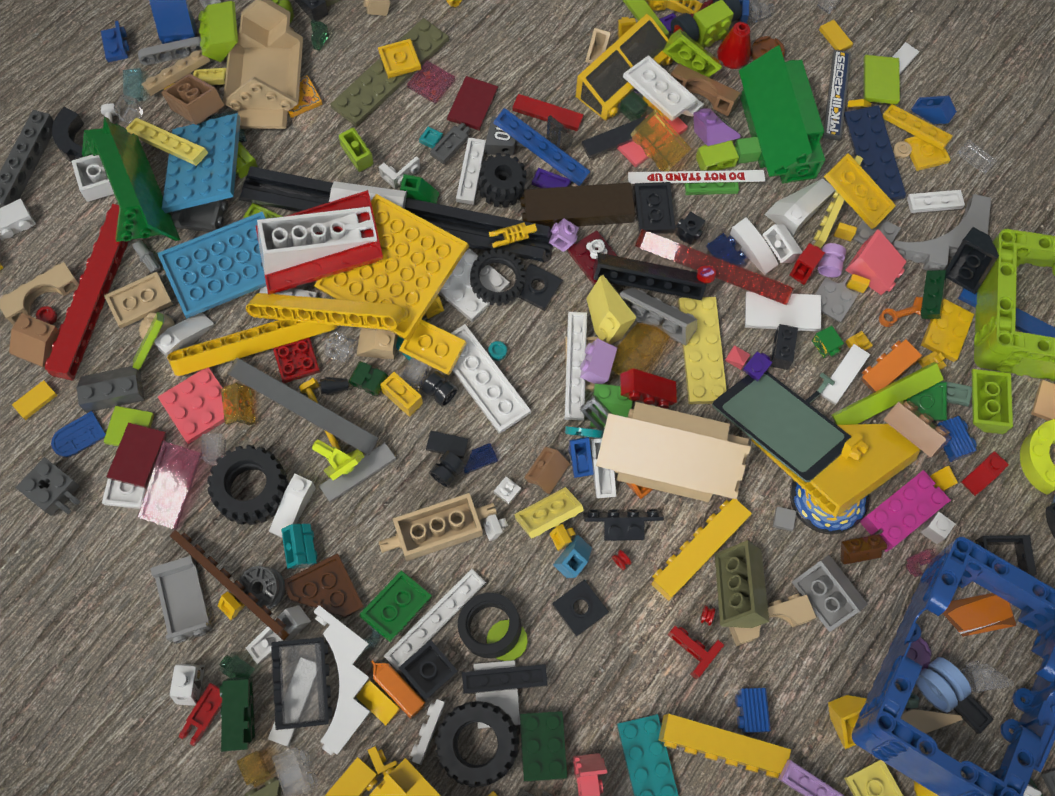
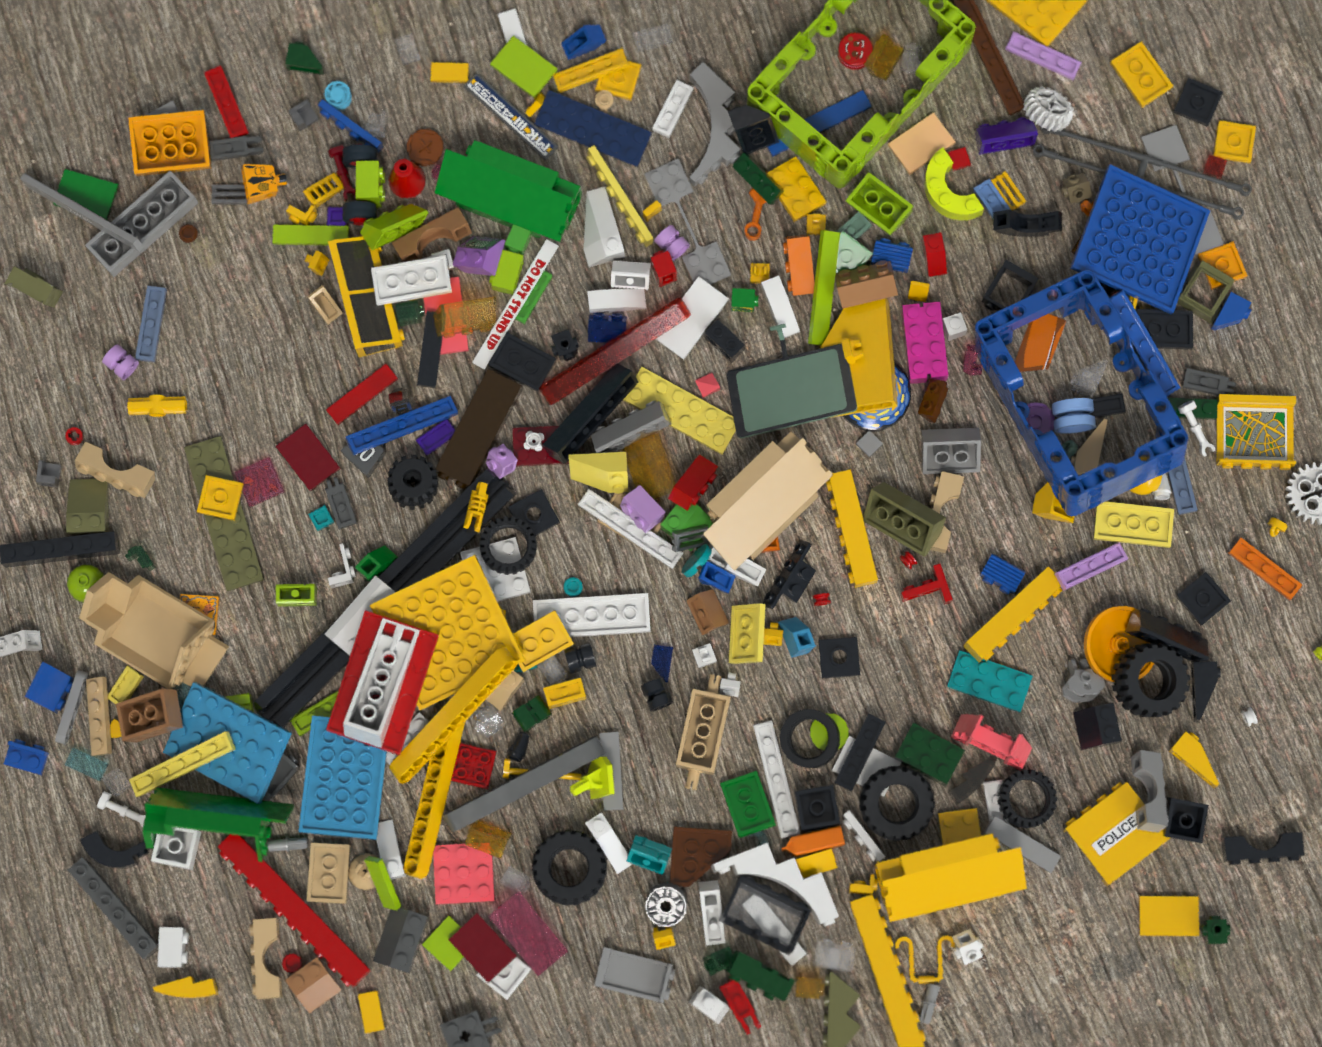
camera: 50 degrees left, 10 degrees up
(77, 435) = (428, 991): blue window -> none
(218, 30) = (83, 650): lime slope -> none
(235, 588) = (656, 924): reddish brown plate -> none
(441, 442) = (632, 681): black tile -> none
(470, 171) = (381, 503): white plate -> none
(706, 274) = (621, 364): red tile -> none
(757, 365) = (727, 375): dark purple bracket -> none
(858, 283) = (706, 235): yellow tile -> none
(859, 191) = (625, 173): yellow plate -> none
(878, 262) = (701, 207): coral slope -> none

